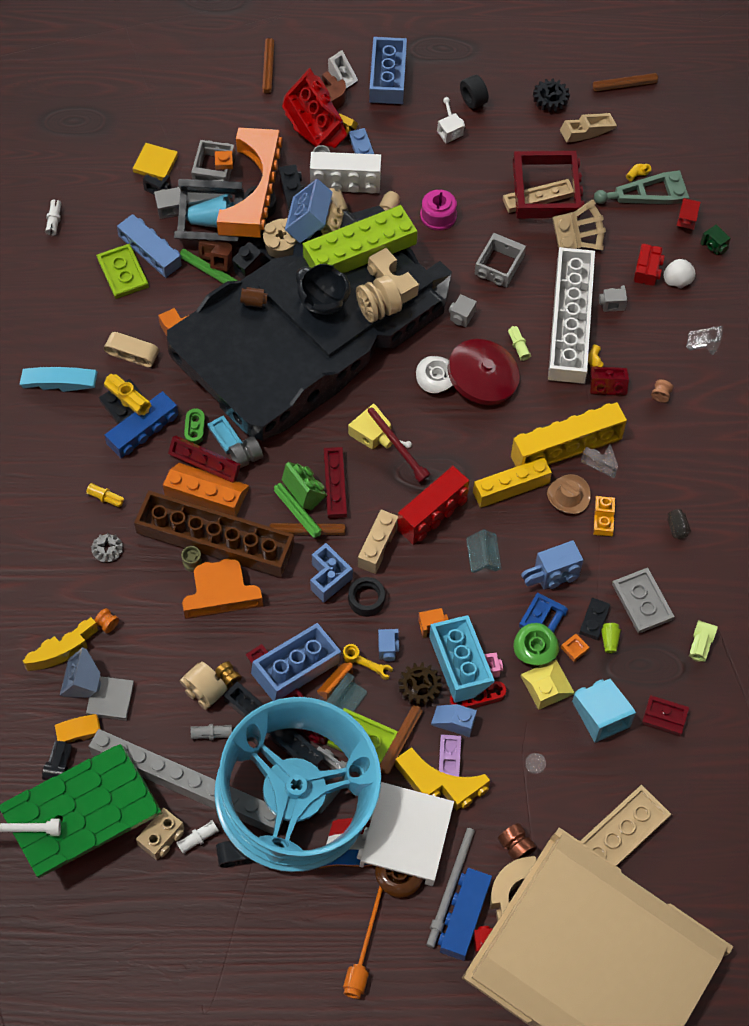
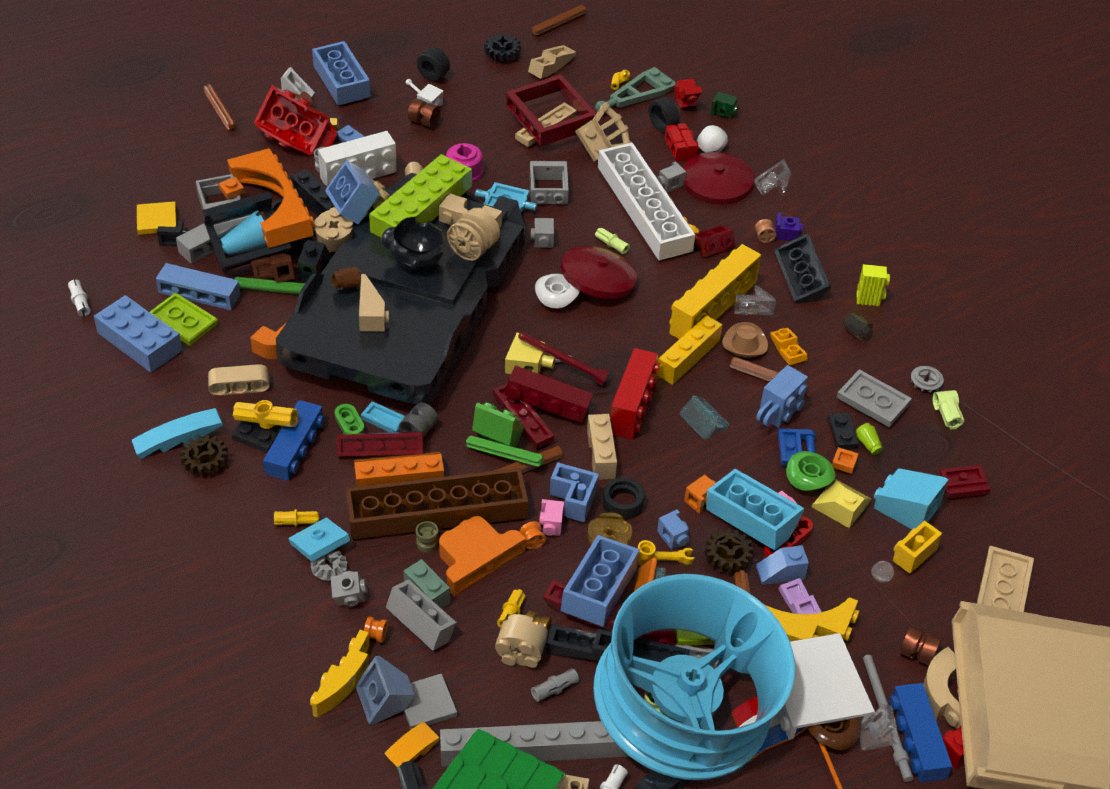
camera: 30 degrees left, 15 degrees down
(67, 408) = (204, 455): none -> dark brown gear
(78, 272) = (138, 333): none -> medium blue brick
(105, 577) = (348, 588): none -> light grey brick
(109, 523) = (319, 539): none -> medium azure plate
(144, 625) = (420, 614): none -> light grey brick
(164, 603) = (429, 583): none -> sand green brick
(219, 651) = (512, 606): none -> yellow axle
(253, 338) = (372, 308): none -> tan slope
(273, 596) = (533, 535): none -> orange wheel
(297, 588) = (551, 517): none -> bright pink brick
(334, 612) = (613, 522): none -> clear yellow plate
(363, 474) = (548, 394): none -> dark red brick
(432, 897) = (879, 729): none -> clear slope
(435, 141) = (424, 113): none -> copper wheel
(454, 259) = (515, 193): none -> medium azure plate
(565, 533) = (753, 369): none -> dark orange axle
(575, 756) = (916, 546): none -> yellow brick
(649, 229) = (670, 111): none -> black tyre
(659, 315) = (718, 178): none -> dark red dish
(668, 445) = (802, 270): none -> black slope
(685, 396) = (787, 228): none -> dark purple brick
(705, 594) = (920, 373): none -> light grey gear
(716, 490) = (872, 284): none -> neon yellow brick

